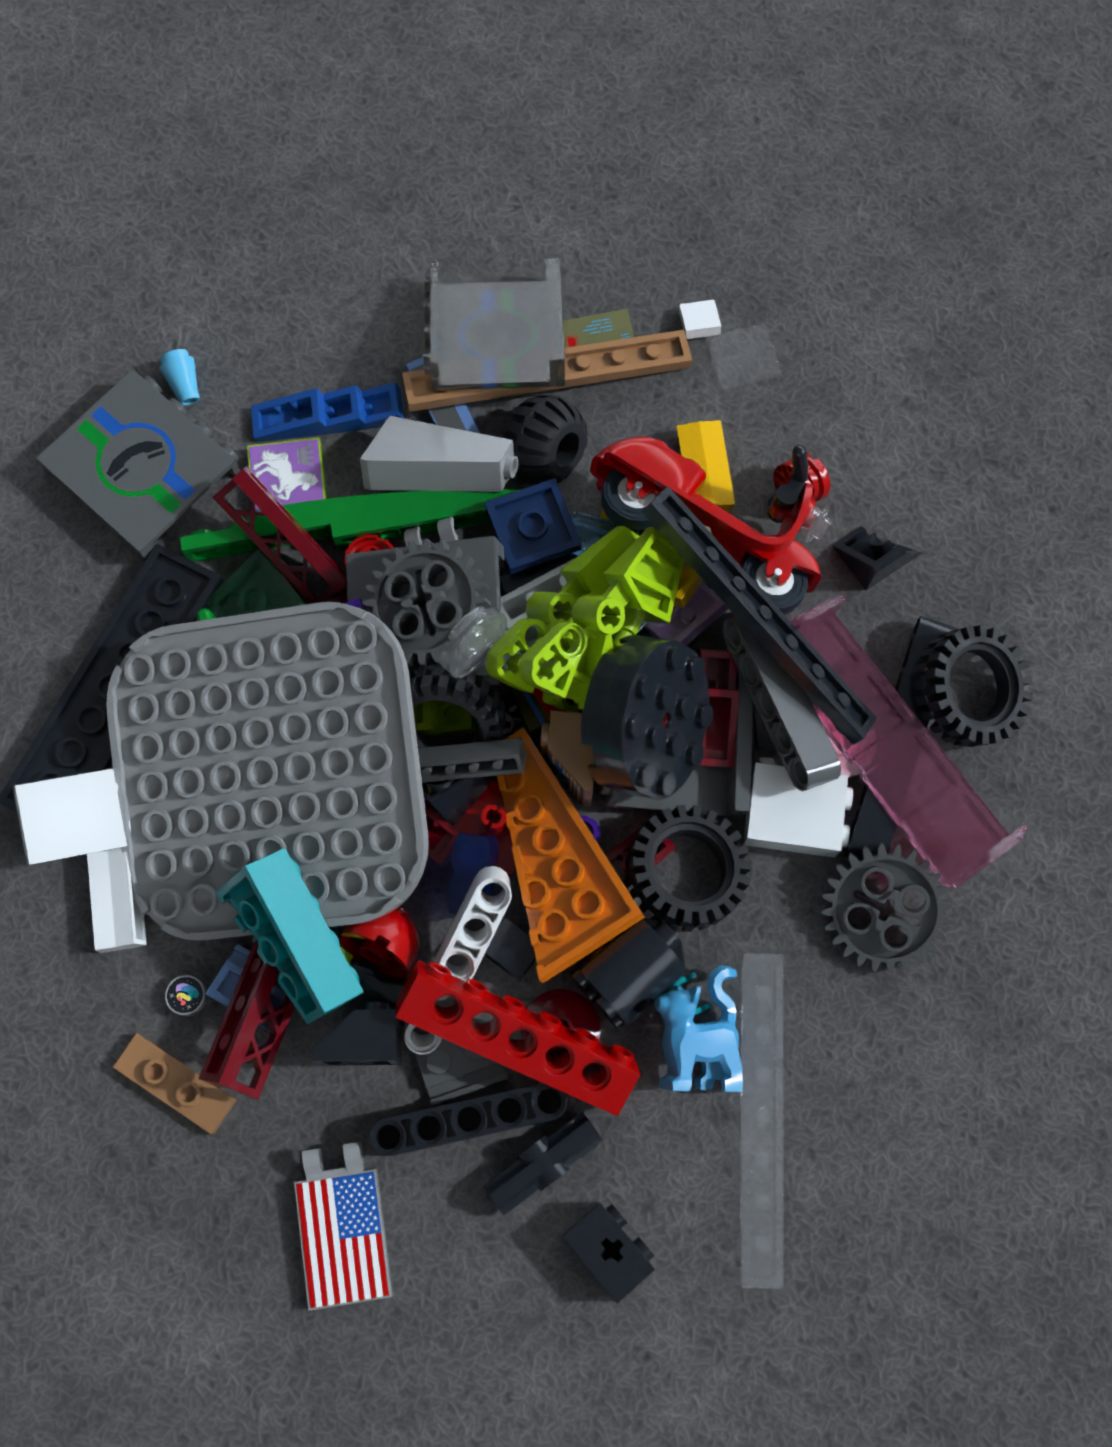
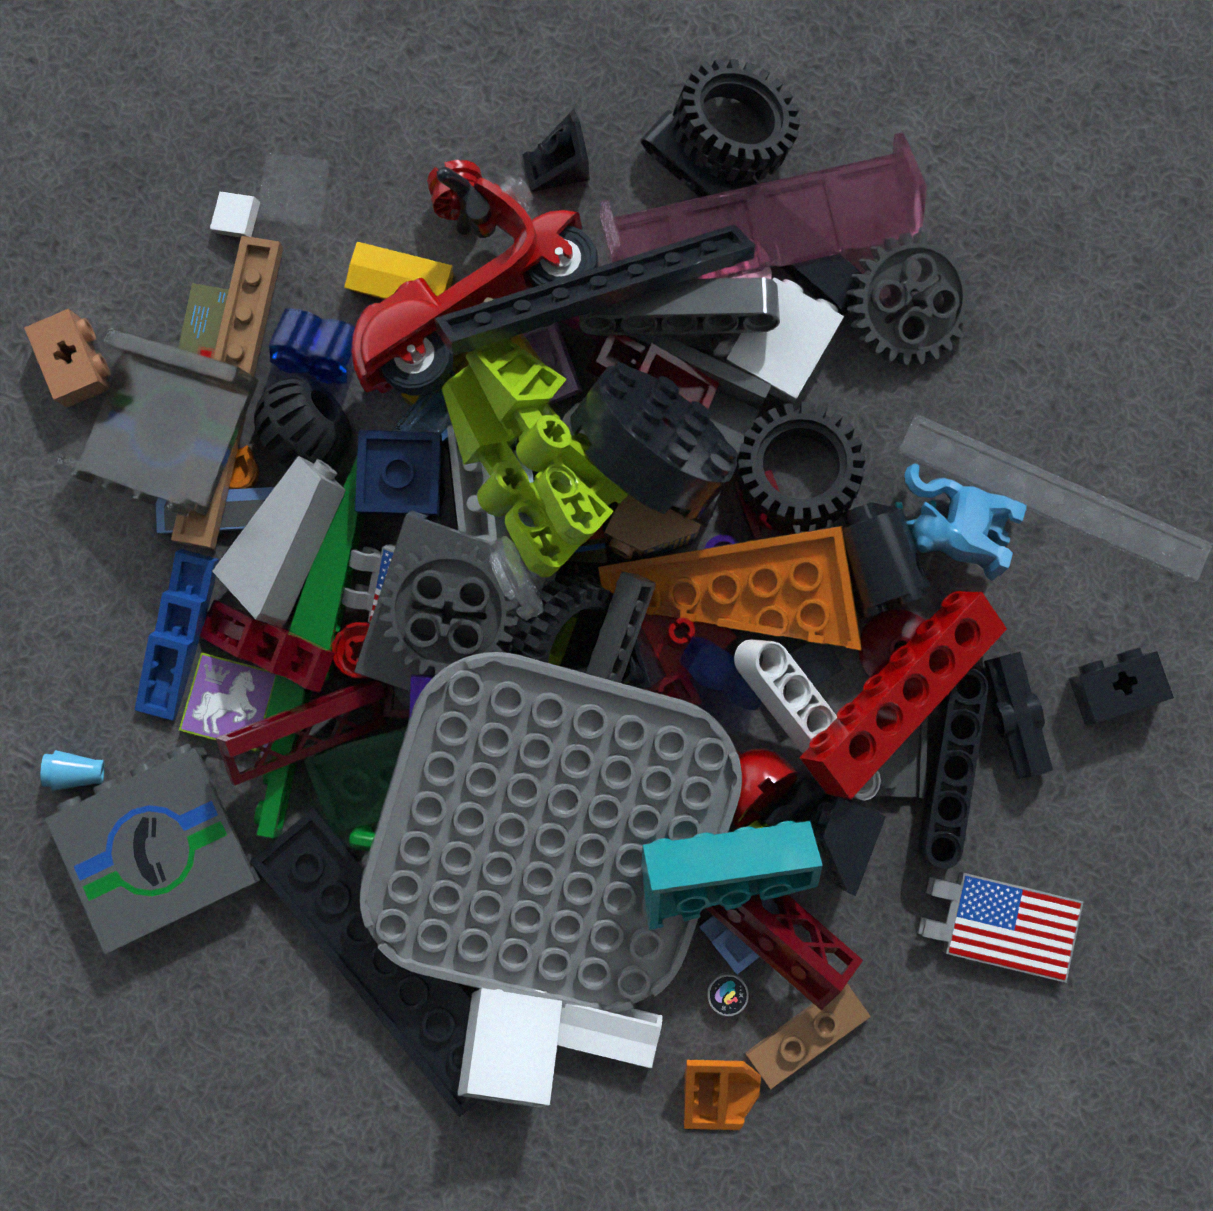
camera: 60 degrees left, 10 degrees up
(92, 1021) = (719, 1094): none -> orange slope
(342, 482) = (267, 645): none -> dark red slope
(488, 411) = (245, 469): none -> orange tile
(522, 240) = (52, 343): none -> nougat brick
(613, 414) = (313, 346): none -> clear blue brick

